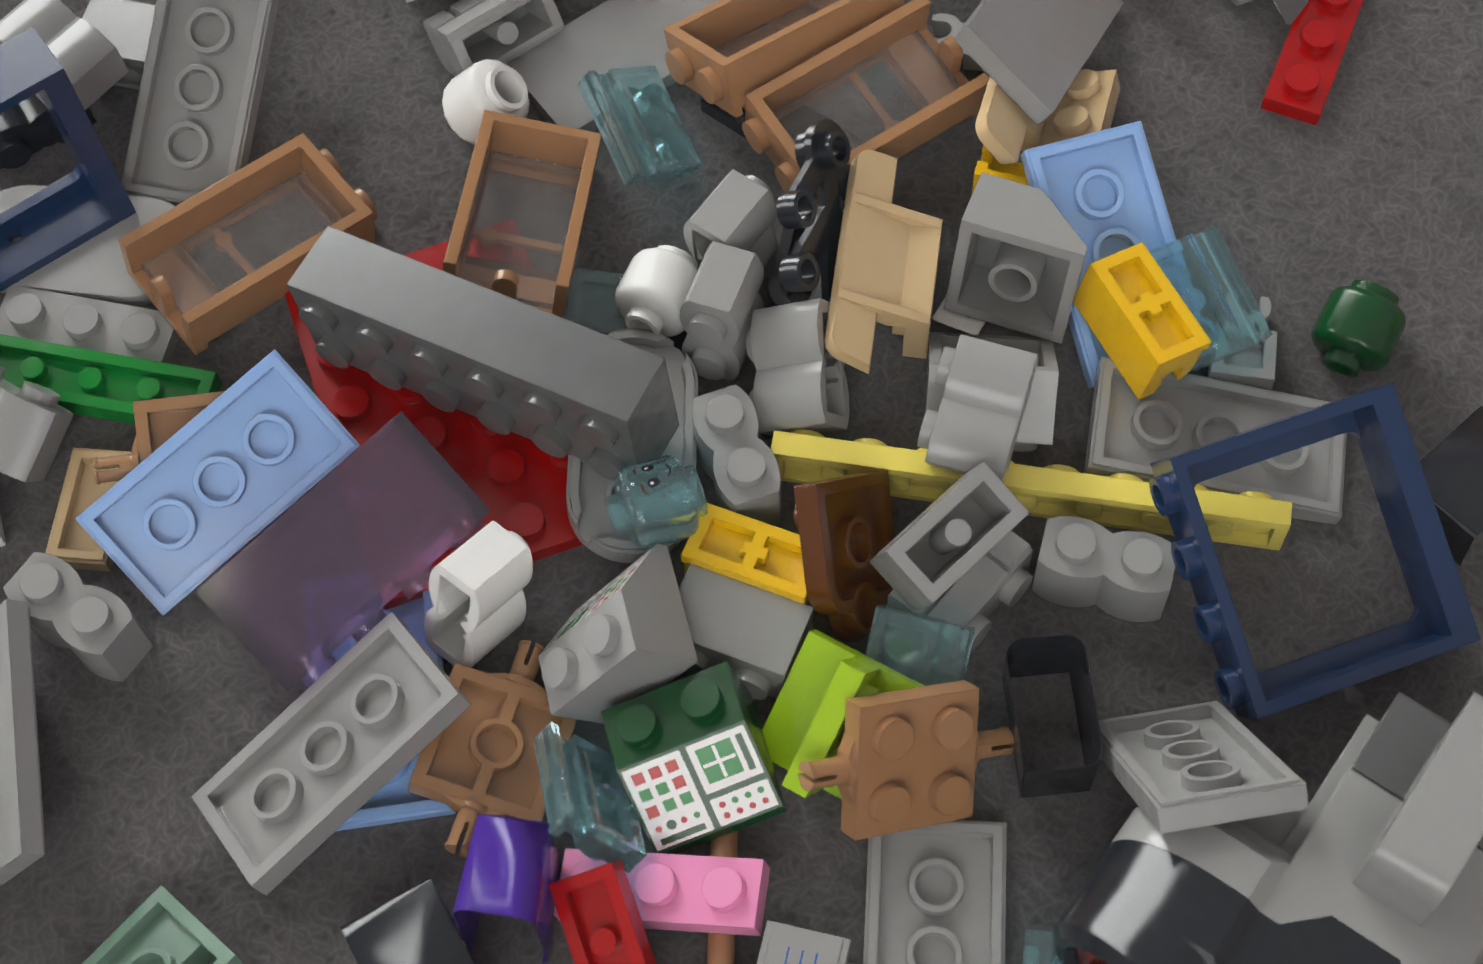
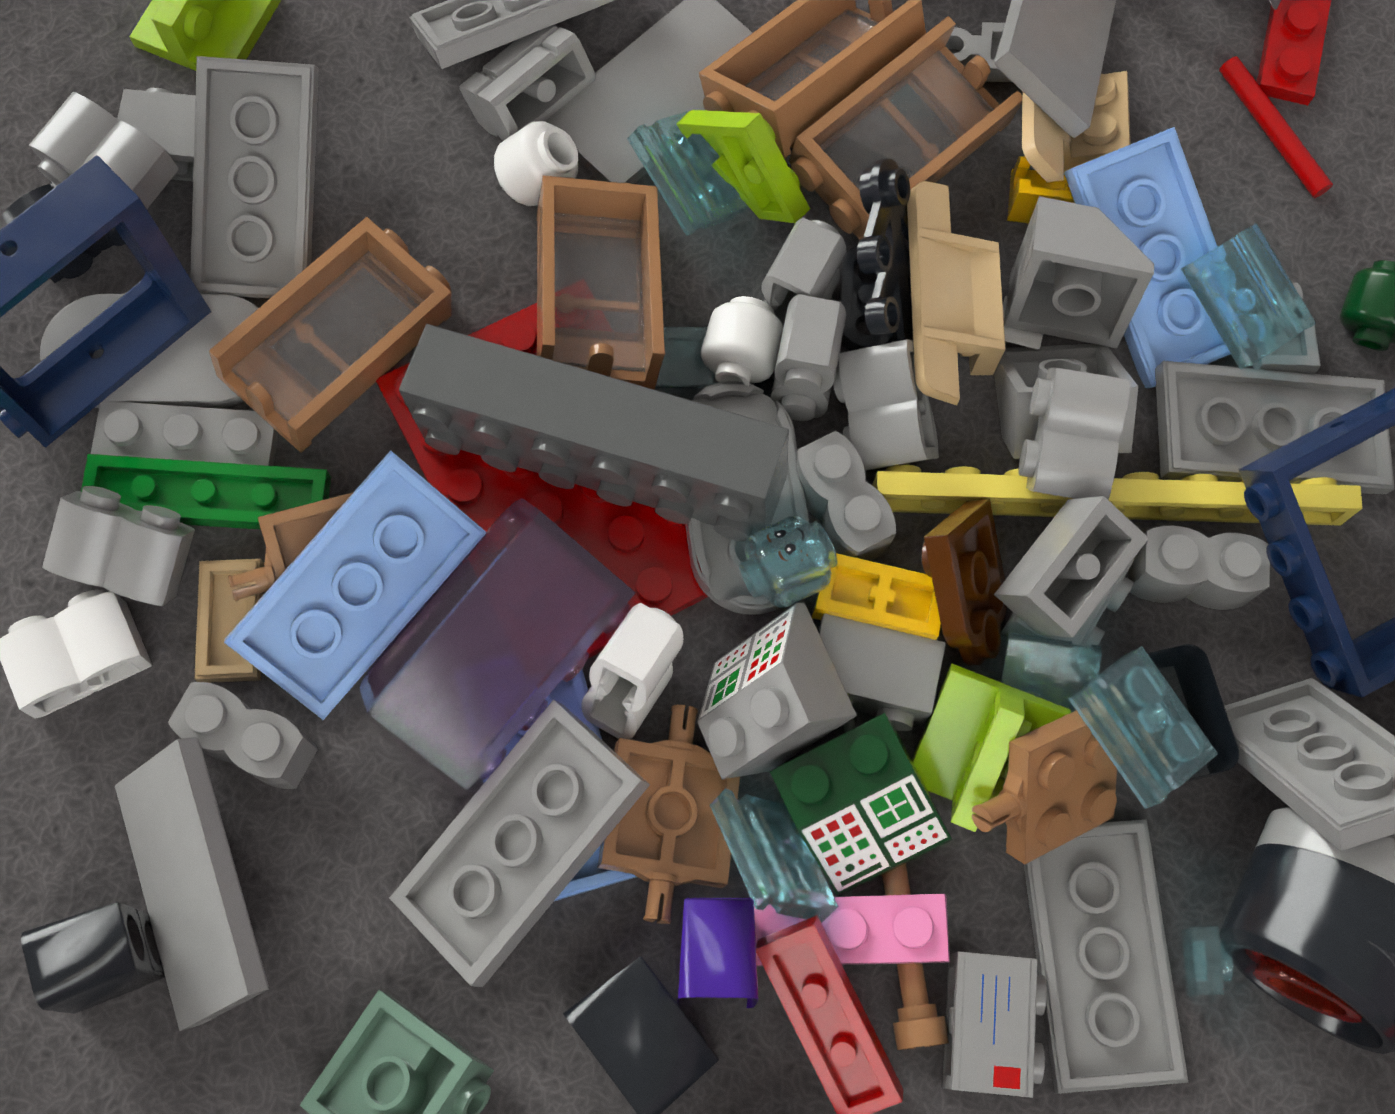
camera: 15 degrees left, 10 degrees up
(699, 117) = (750, 162): none -> lime wing
(997, 706) = (1143, 727): none -> clear light blue plate
(1140, 319) = (1201, 325): yellow hinge -> none
(1274, 143) = (1275, 127): none -> red bar

